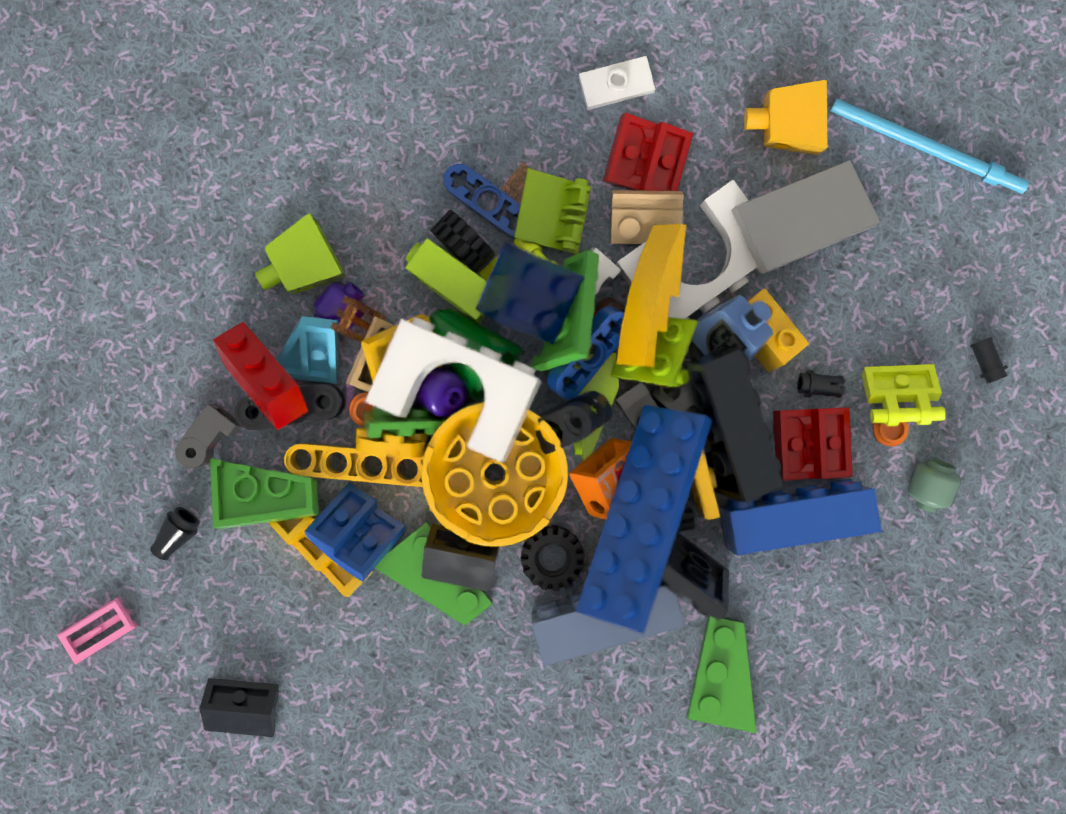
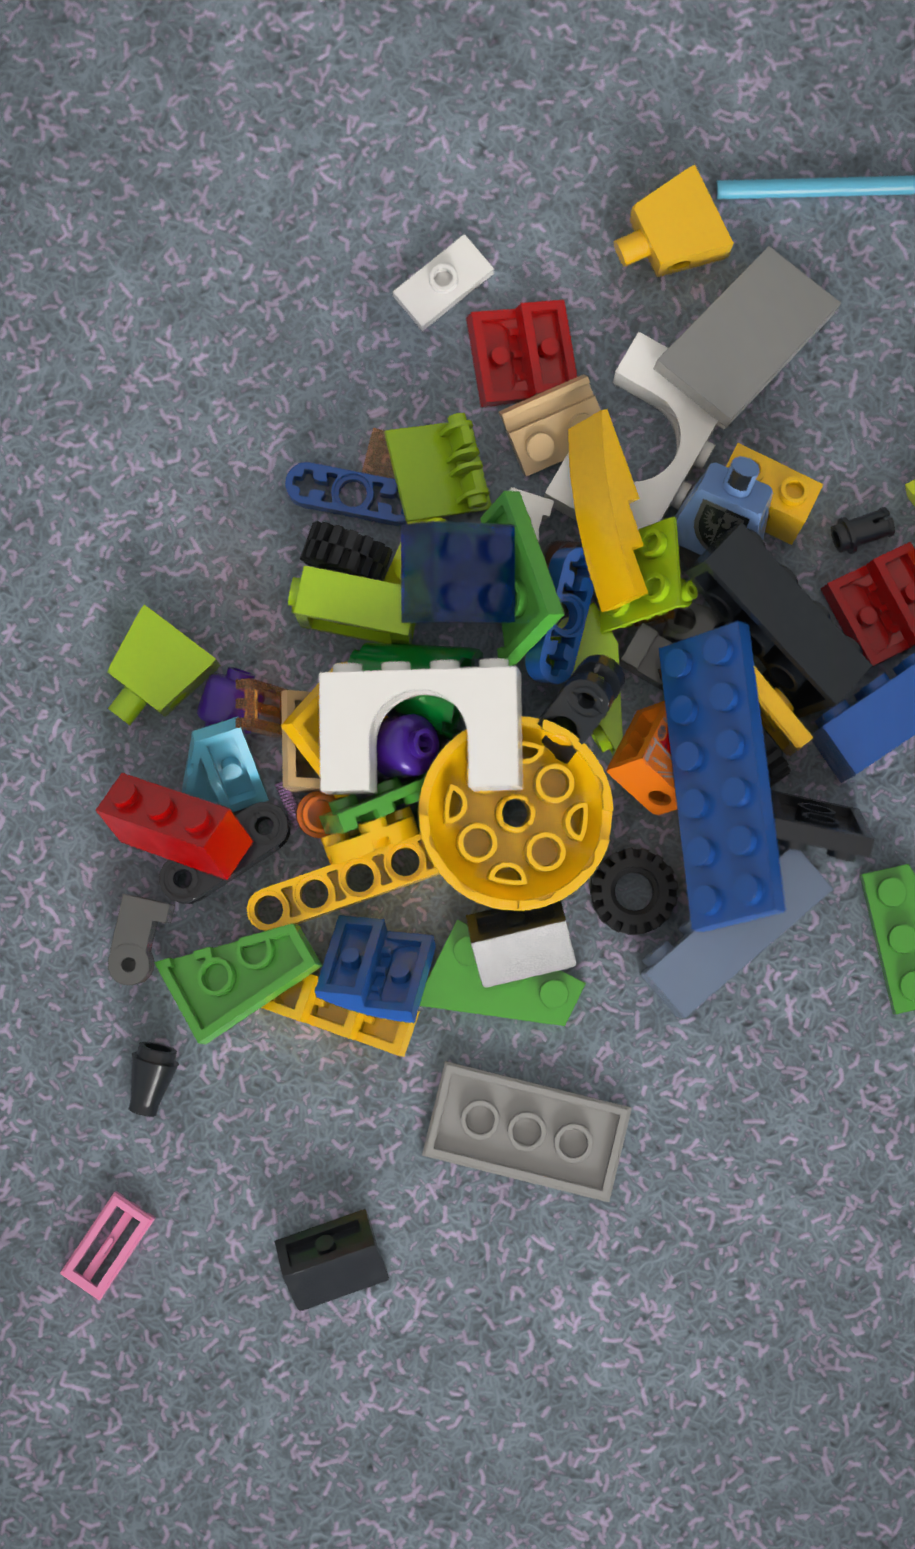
camera: 20 degrees left, 5 degrees down
(408, 682) = (527, 1131): none -> light grey tile

